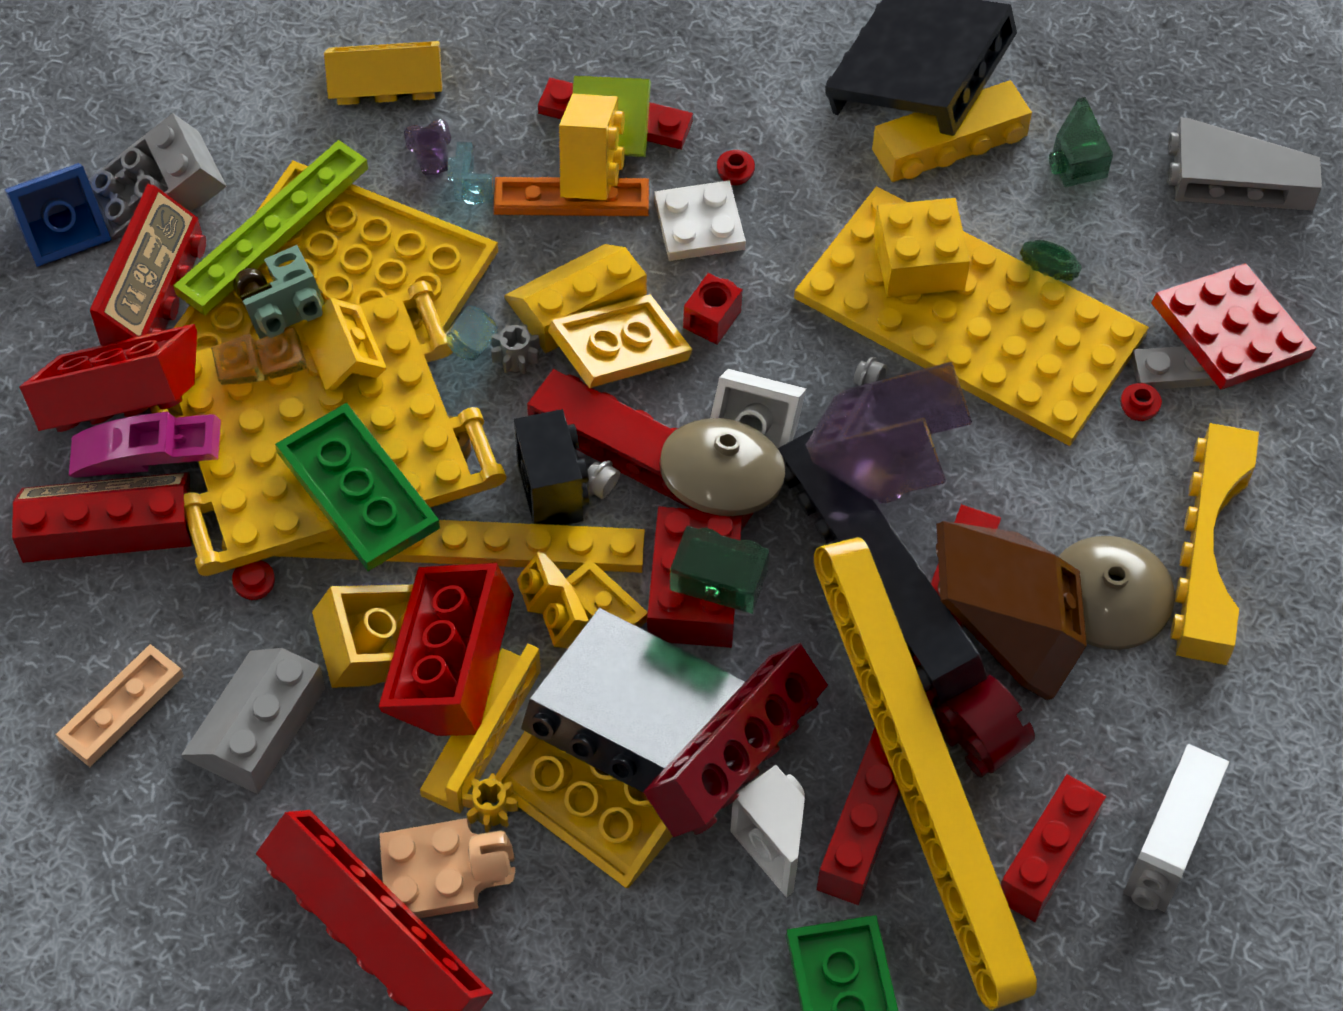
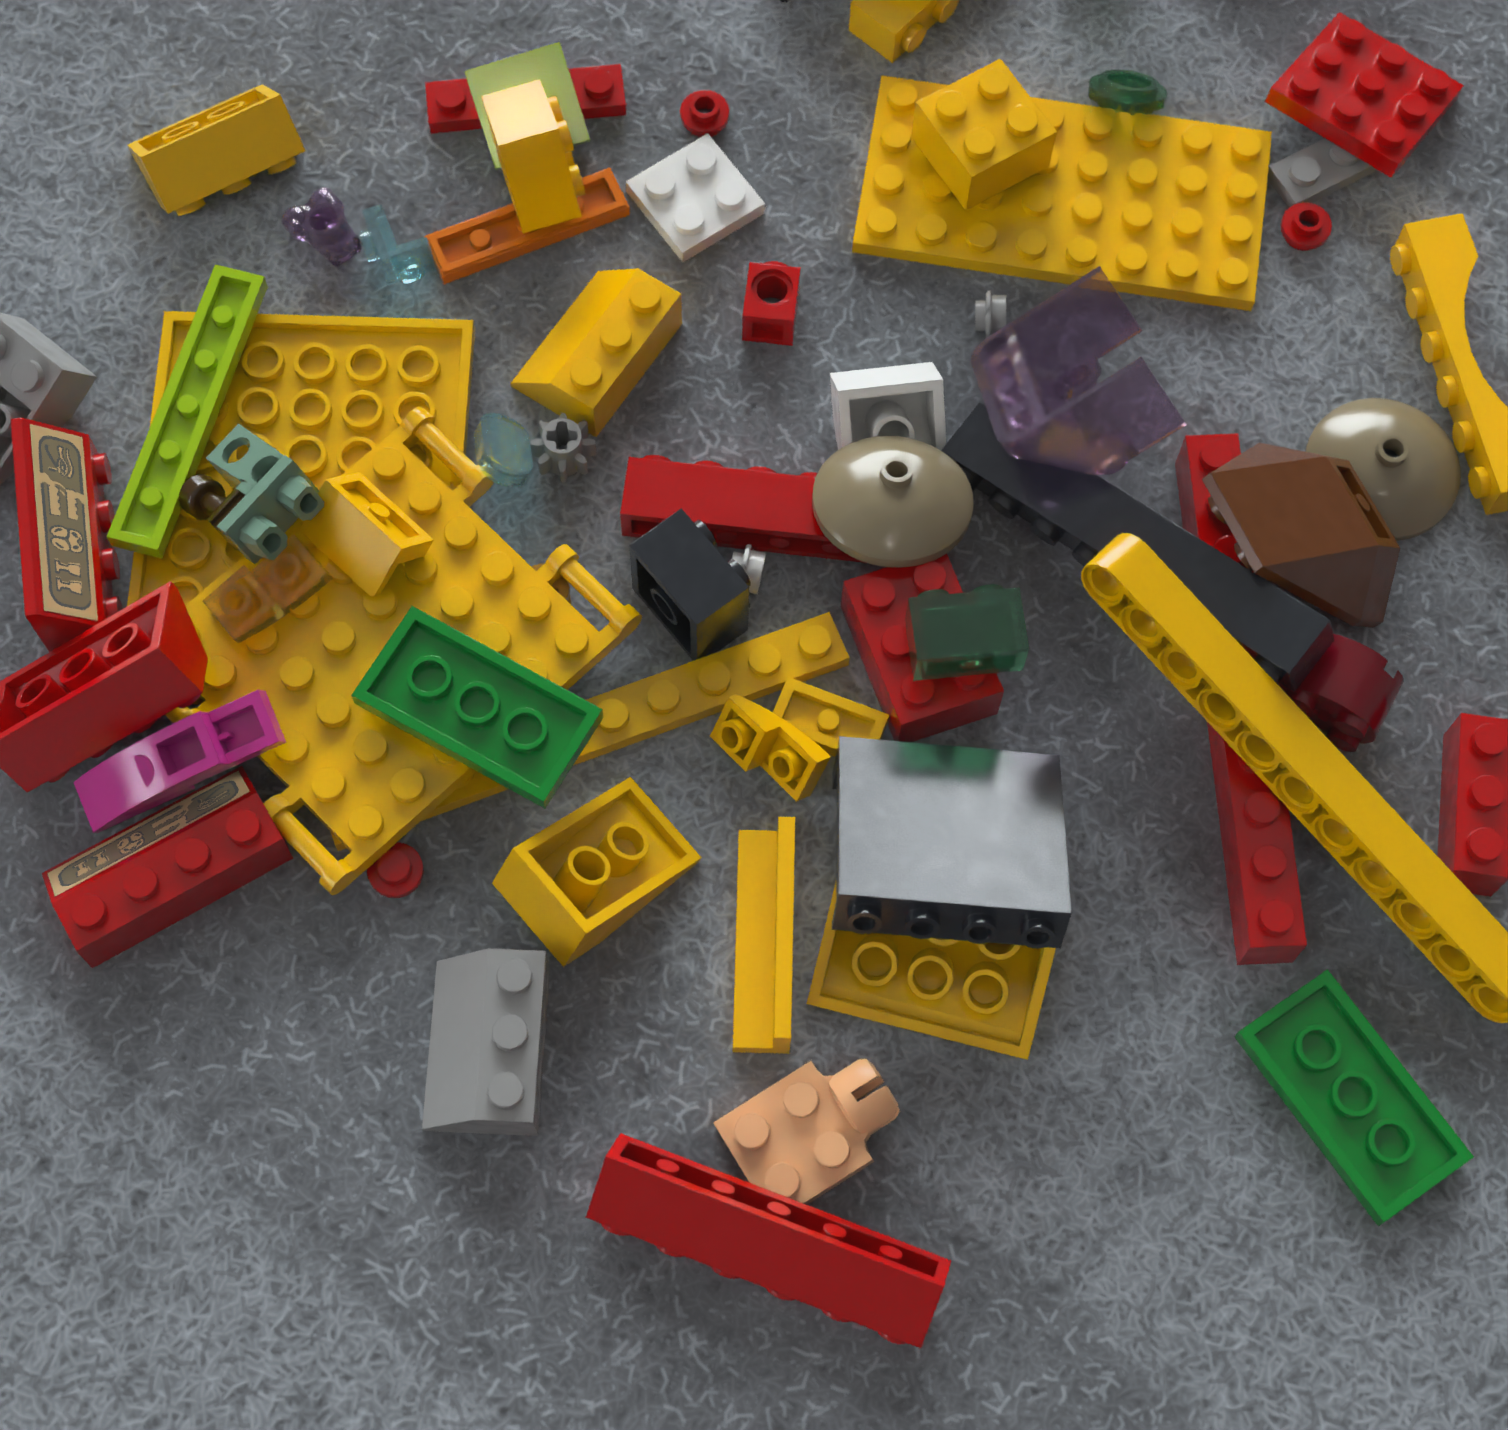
camera: 25 degrees left, 10 degrees up
(119, 705) = (316, 1101): light nougat plate -> none
(448, 648) = (683, 861): red slope -> none
(493, 791) = (816, 1015): yellow gear -> none
(619, 340) = (686, 389): yellow plate -> none
(736, 742) = (1093, 840): dark red brick -> none
(769, 824) = (1175, 919): white slope -> none

